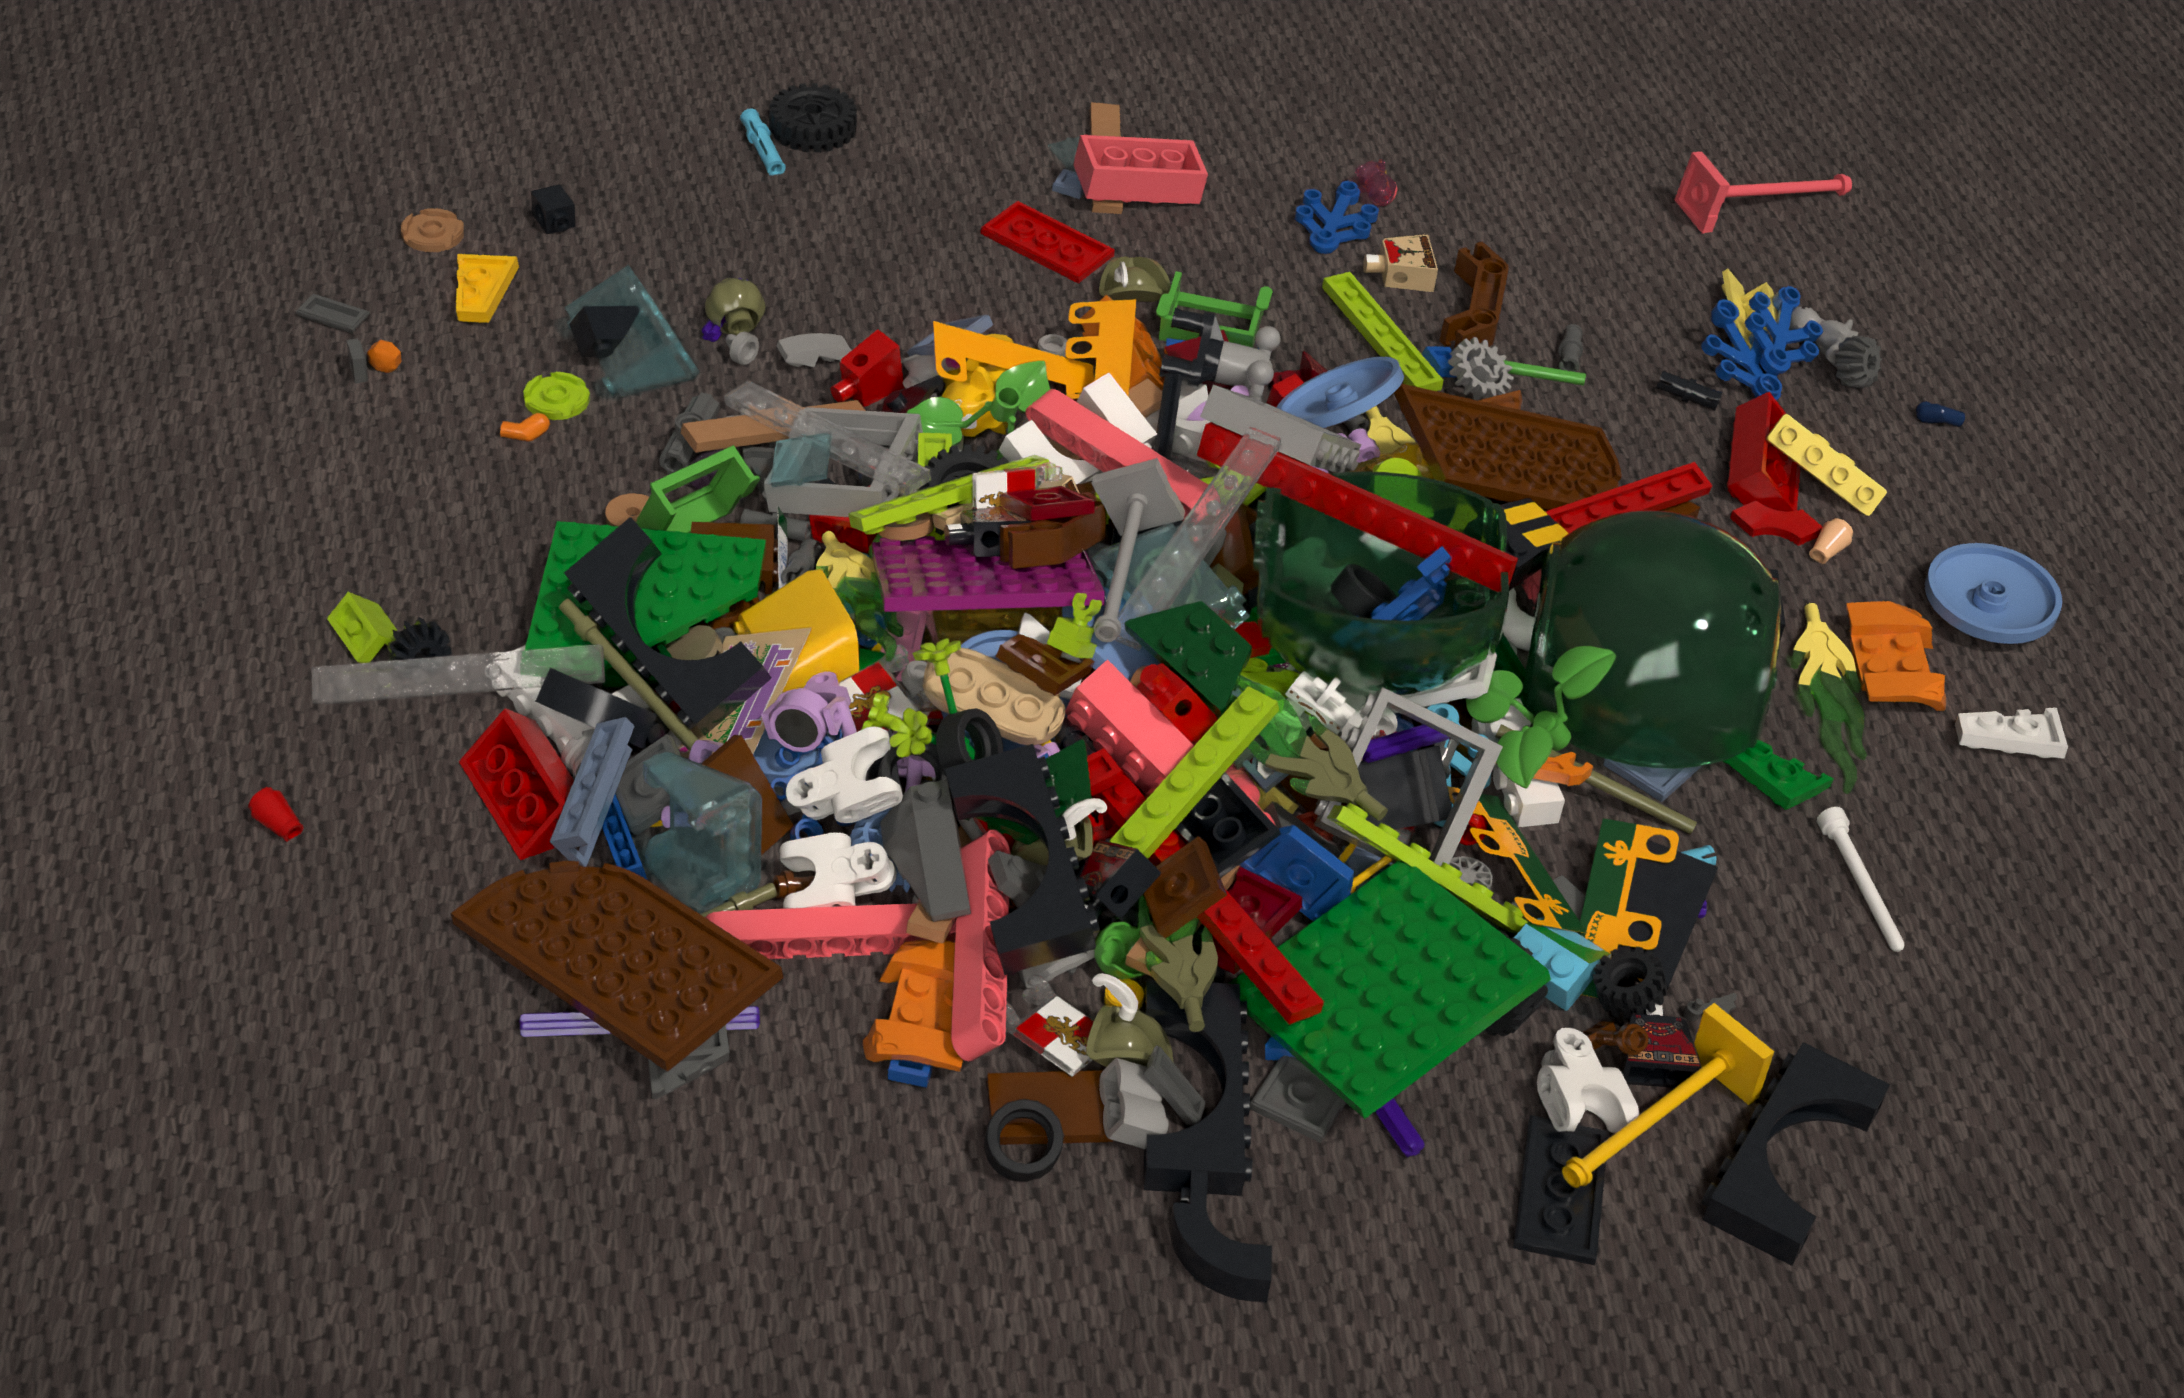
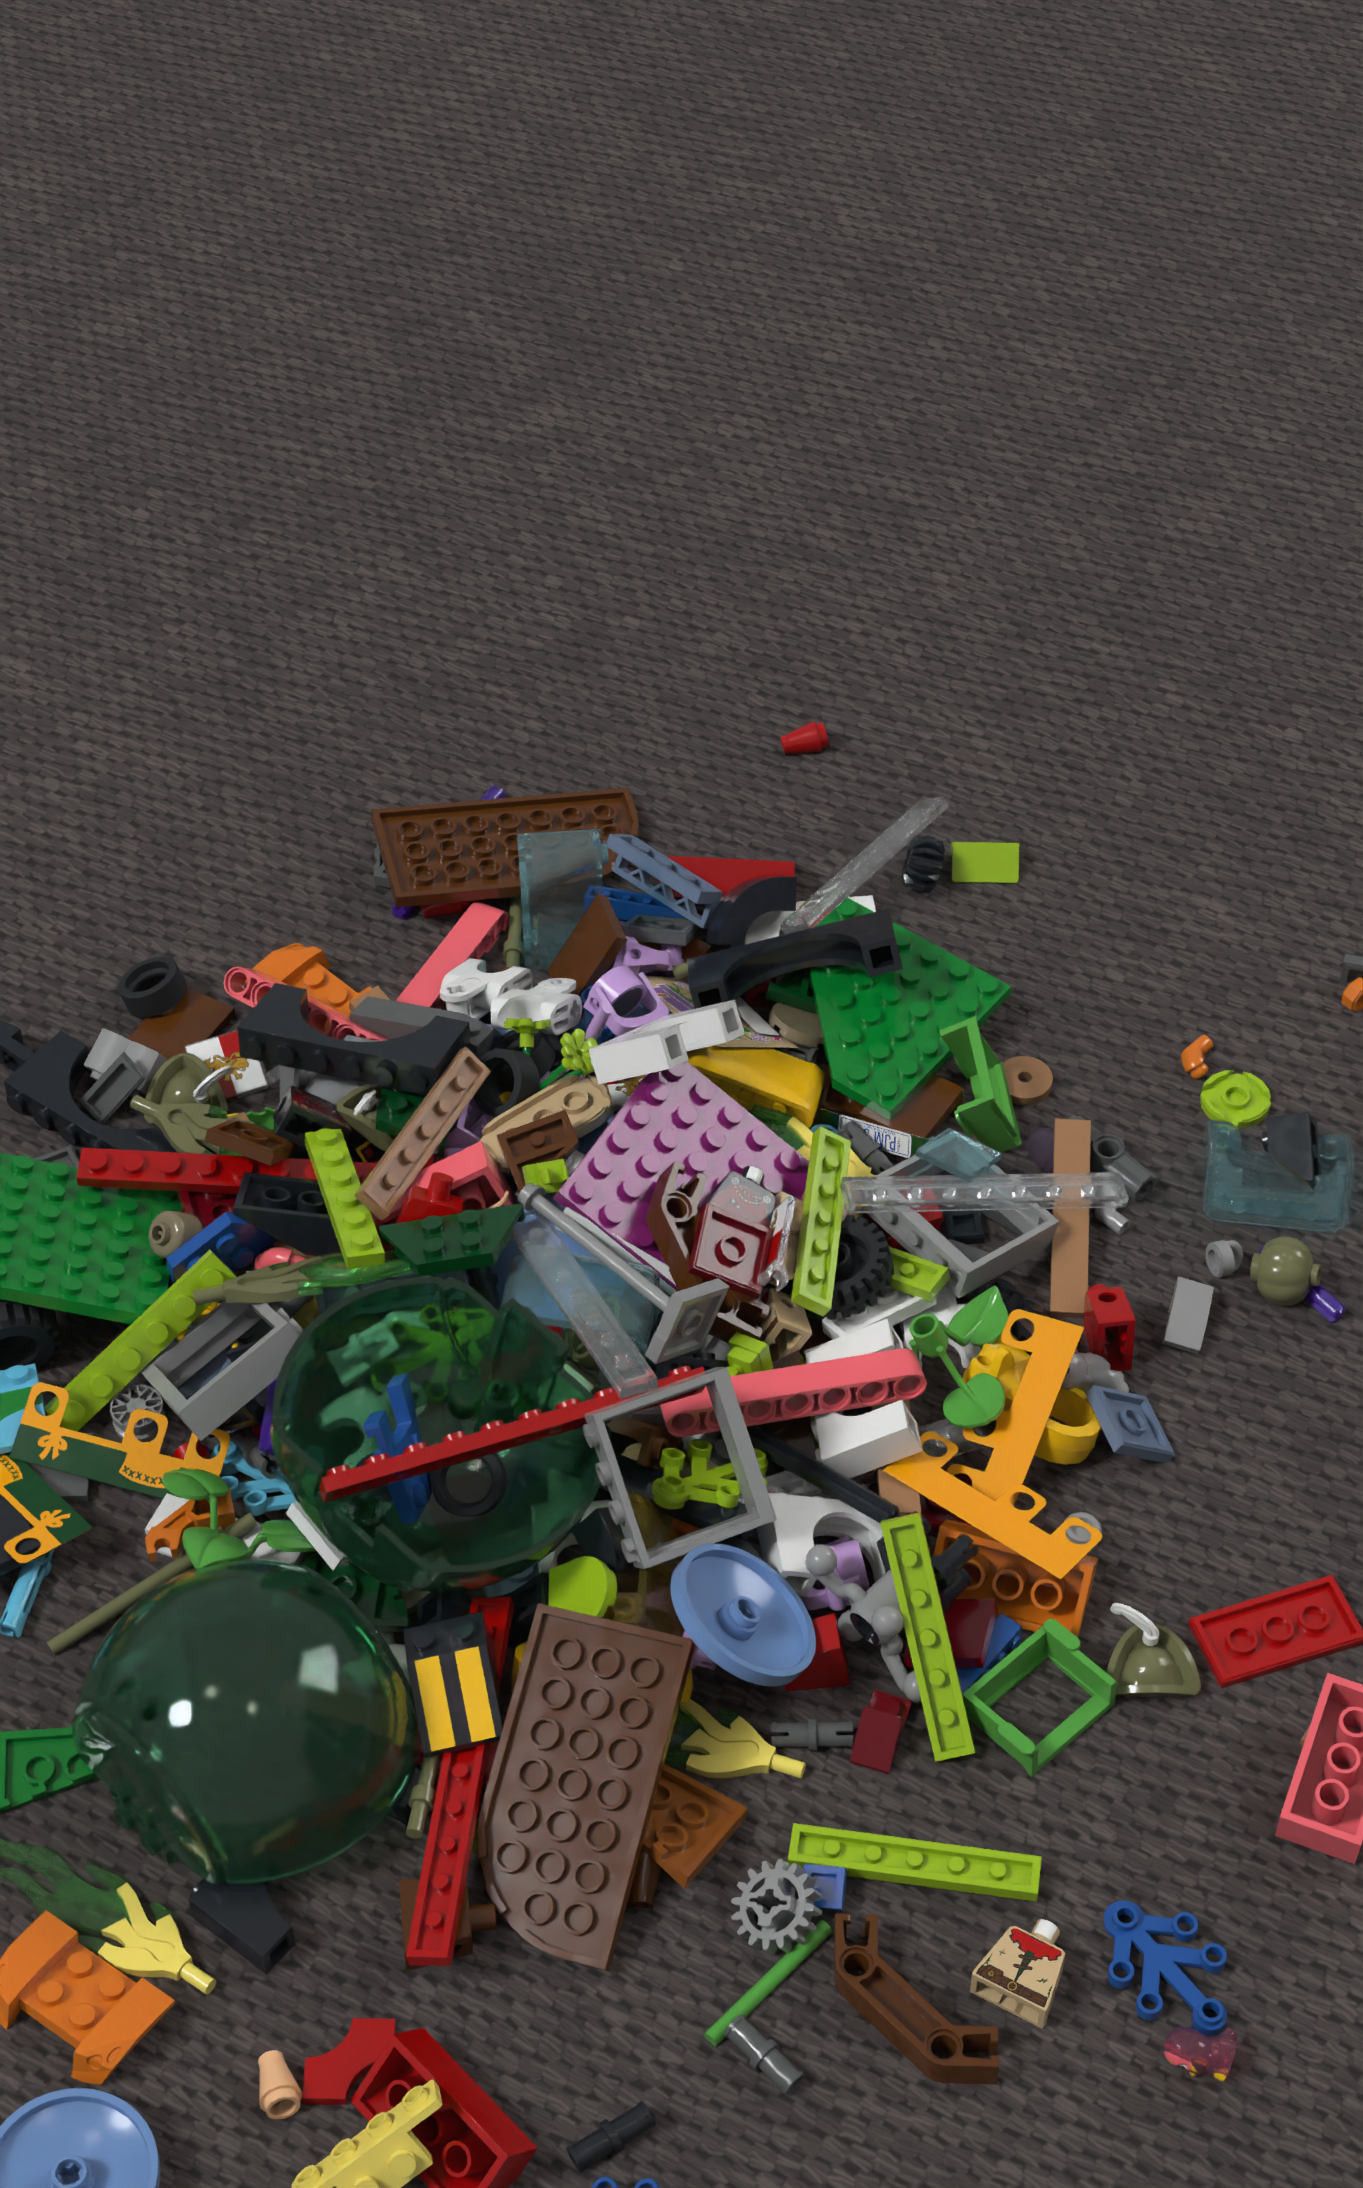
camera: 130 degrees right, 5 degrees up
(921, 616) = (665, 1042): none -> white arch
(1099, 737) = (422, 1134): none -> medium nougat tile
(1242, 328) = (927, 1637): none -> lime plate
(1318, 891) = (171, 1231): none -> dark tan head

